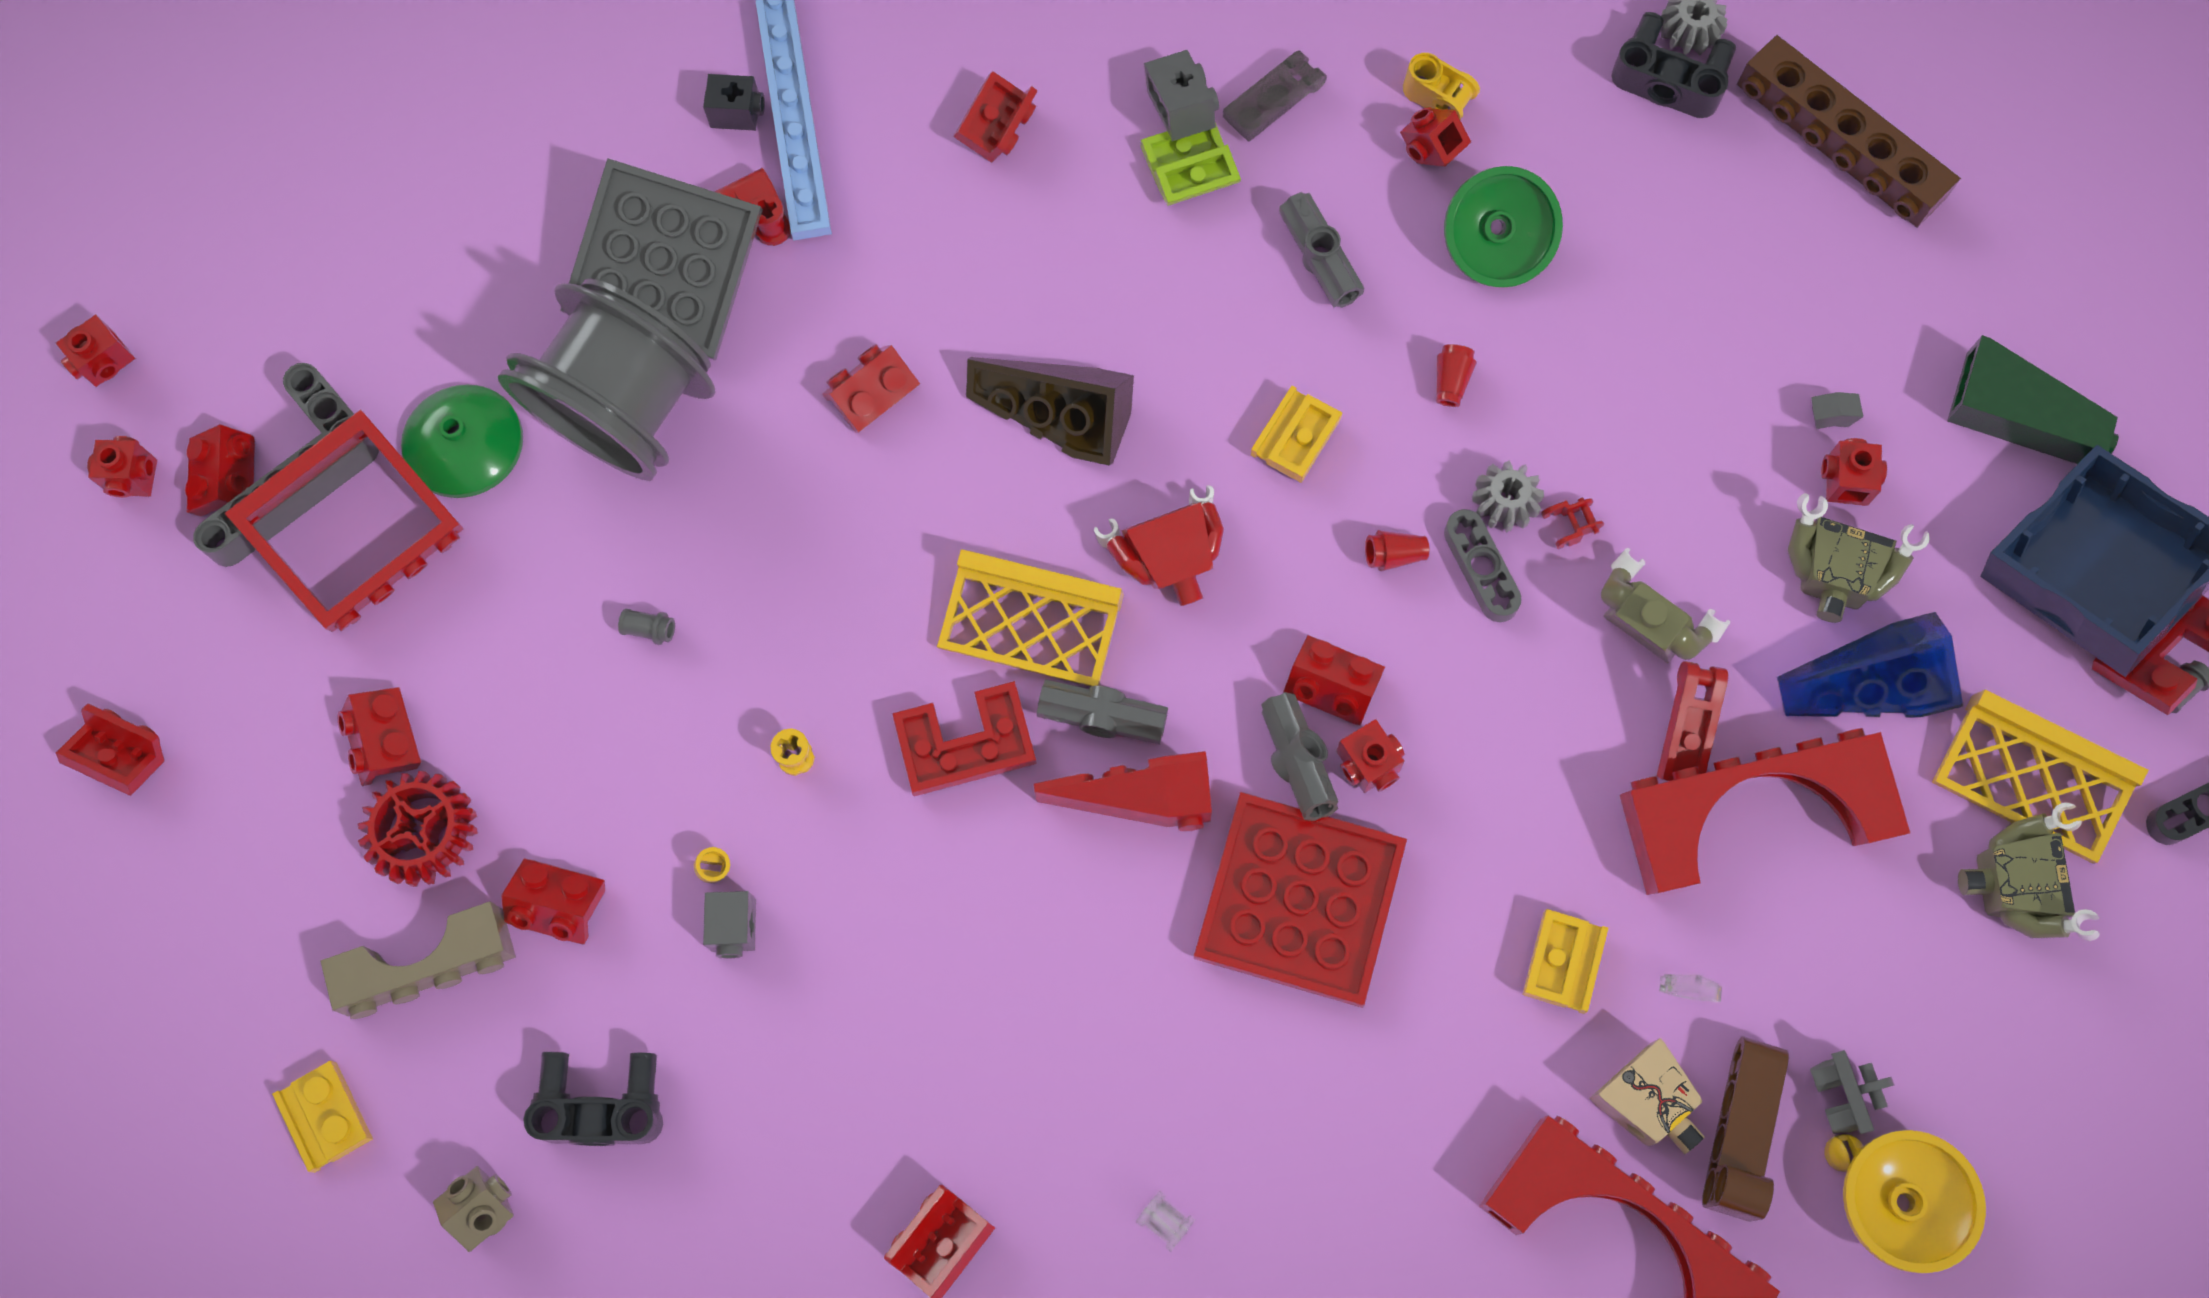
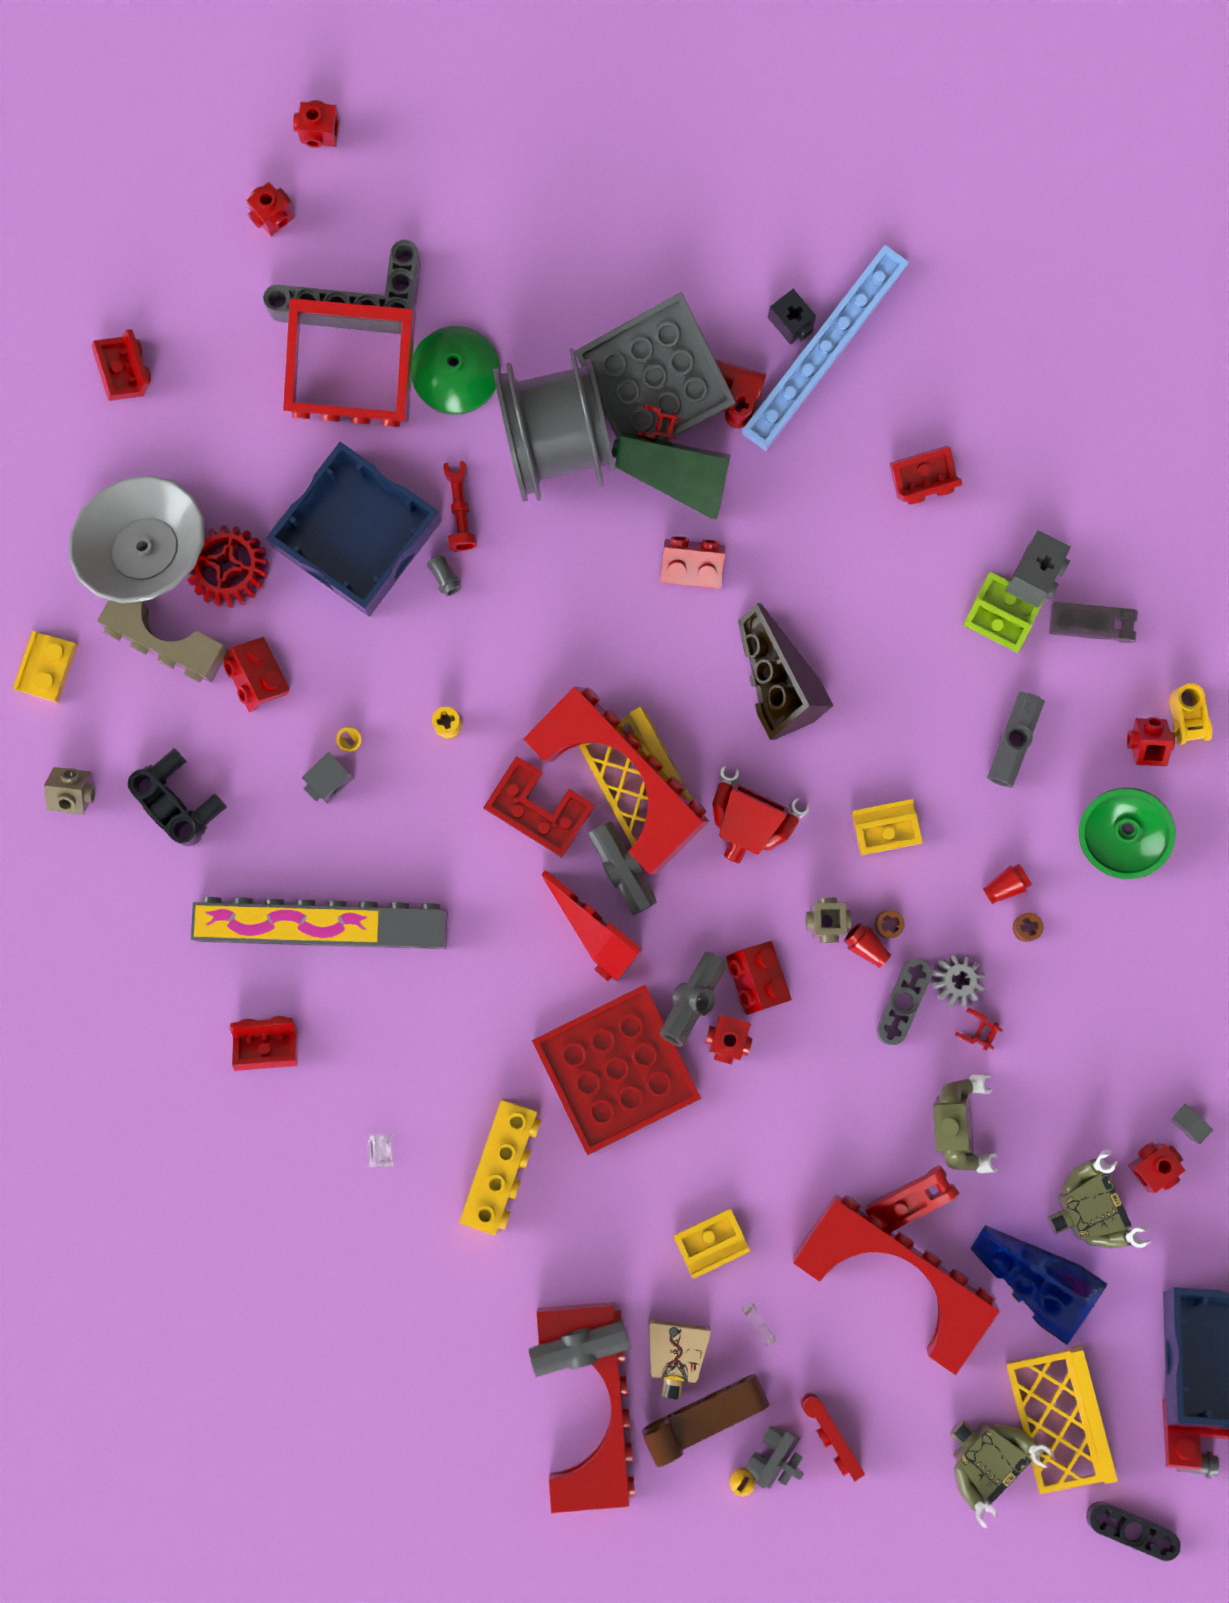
camera: 45 degrees right, 10 degrees up
(218, 468) = (317, 259): red bracket -> none
(265, 883) = (123, 521): none -> light grey dish
(378, 734) = (256, 494): red bracket -> none
(511, 669) = (354, 529): none -> dark blue tile
(630, 576) = (463, 539): none -> red piece
(716, 275) = (672, 419): none -> red piece
(772, 316) = (678, 470): none -> dark green slope
(868, 1071) = (319, 924): none -> brick
(921, 617) = (670, 815): none -> red arch
(1296, 1109) = (499, 1167): none -> yellow brick
(1342, 549) = (836, 911): none -> dark tan brick
(1399, 501) = (888, 933): none -> dark orange bush
(1519, 401) = (1024, 936): none -> dark orange bush
(1565, 1189) = (579, 1348): none -> dark grey piece
(1871, 1014) = (831, 1436): none -> red plate
(1943, 1198) = (748, 1563): yellow dish -> none

